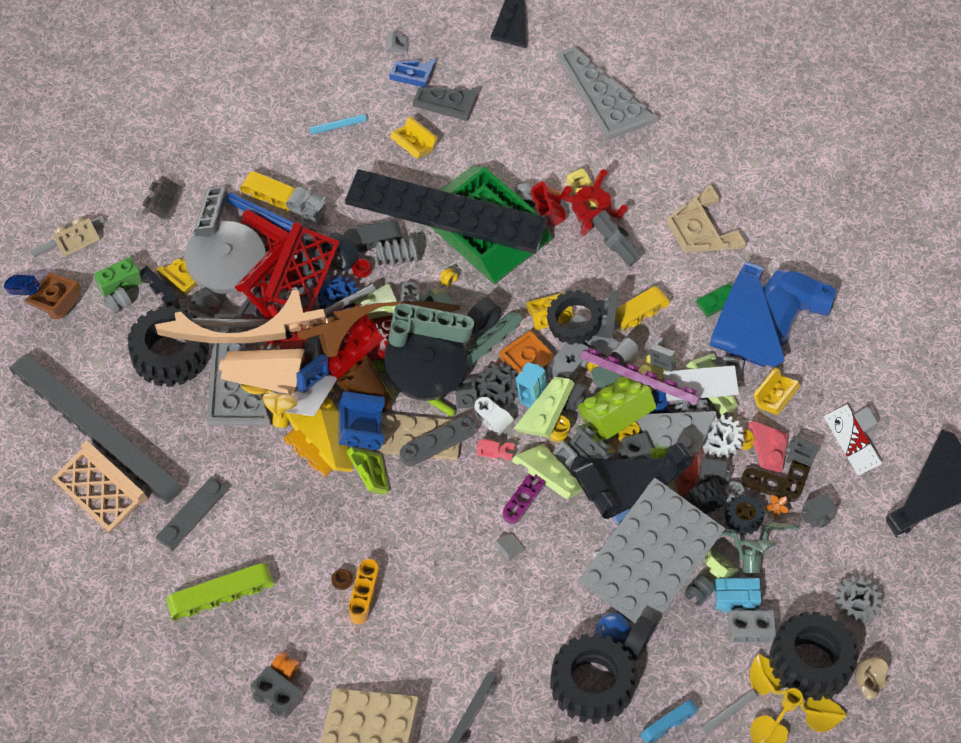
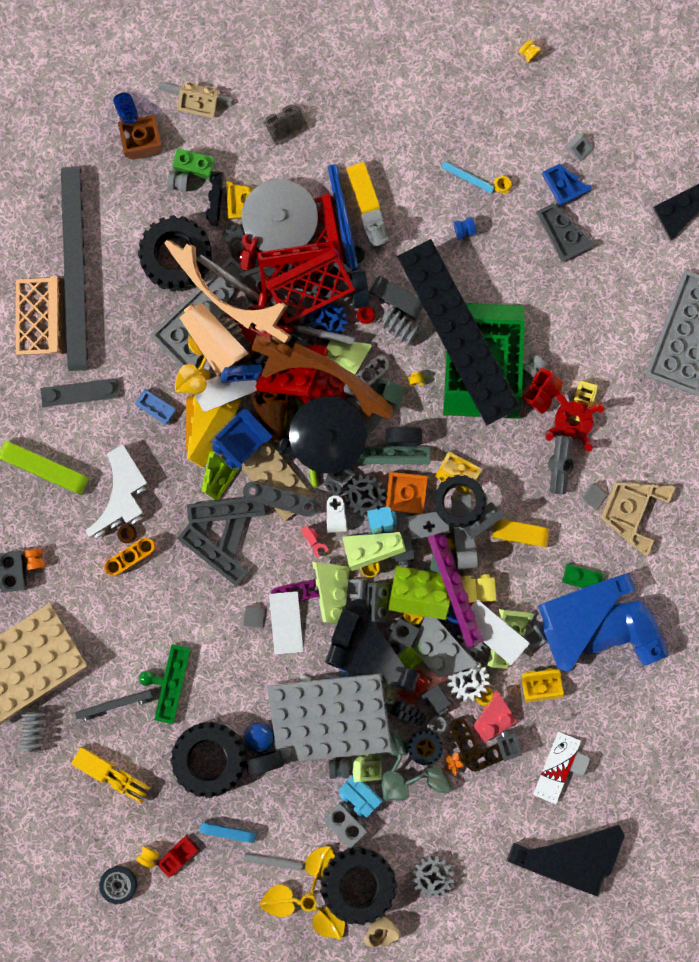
camera: 50 degrees right, 25 degrees up
(210, 211) = (302, 171): dark grey plate -> none
(228, 302) = (248, 256): none -> red plate
(266, 467) = (156, 407): none -> medium blue plate
(295, 14) = (530, 50): none -> yellow wheel
(304, 540) = (122, 504): none -> white arch
(368, 103) = (507, 184): none -> yellow plate
(372, 154) = (464, 228): none -> blue wheel
(404, 403) = (285, 448): none -> black wheel
(414, 138) = (505, 244): yellow bracket -> none
(430, 323) = (347, 419): sand green beam -> none
(435, 526) = (220, 557): none -> dark grey plate
(499, 654) = (171, 683): none -> green plate
(539, 526) = (286, 622): none -> white sticker
(662, 241) = (593, 496): none -> light grey slope
(662, 356) = (486, 588): dark grey bracket -> none
(819, 511) = (475, 795): dark grey brick -> none

